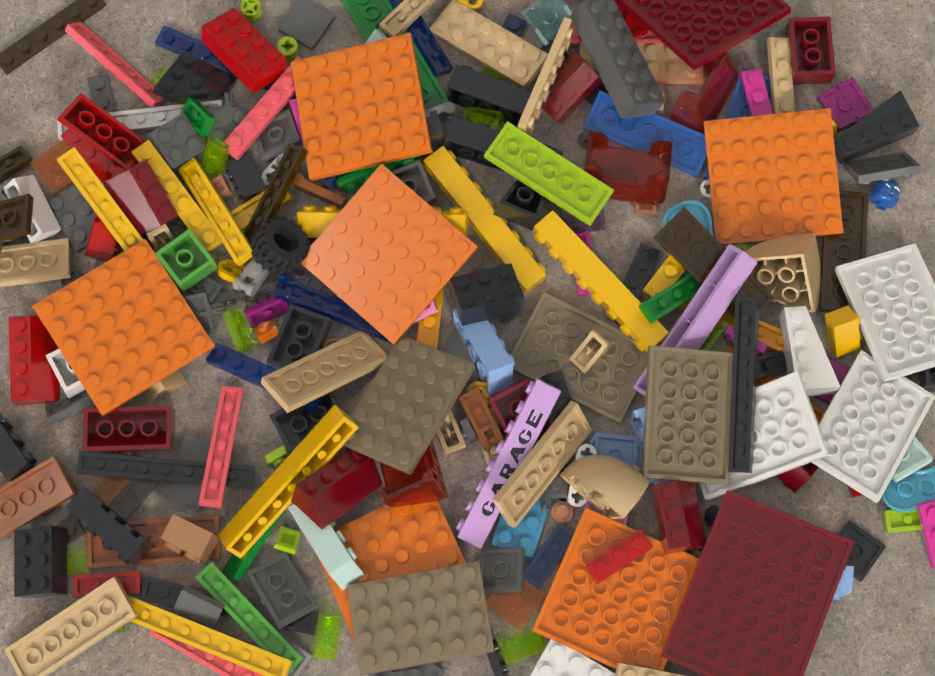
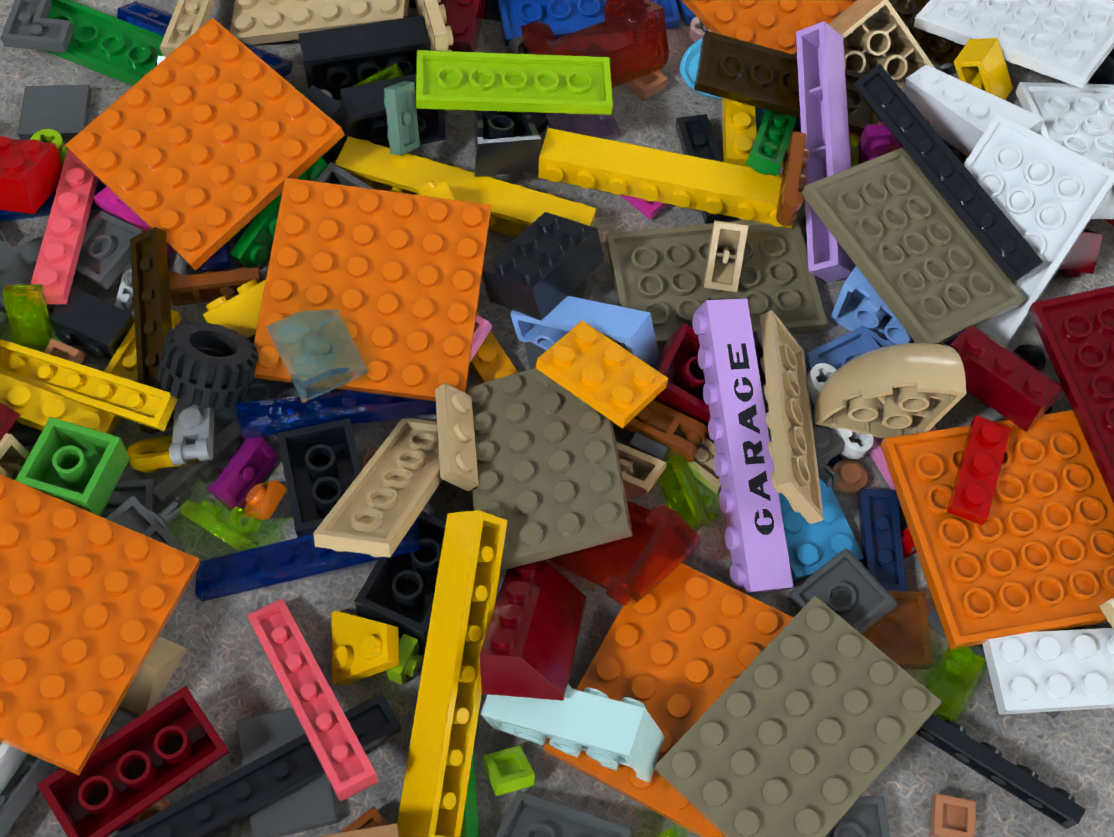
camera: 40 degrees left, 15 degrees down
(261, 437) = (361, 648): none -> yellow wing
(334, 275) = (316, 351): none -> clear light blue slope
(373, 363) = (456, 437): none -> tan plate
(462, 380) = (602, 373): none -> light orange plate
(470, 459) = (683, 495): none -> clear neon green plate
(473, 157) = (401, 117): none -> sand green plate
(655, 332) = (792, 180): none -> dark orange plate

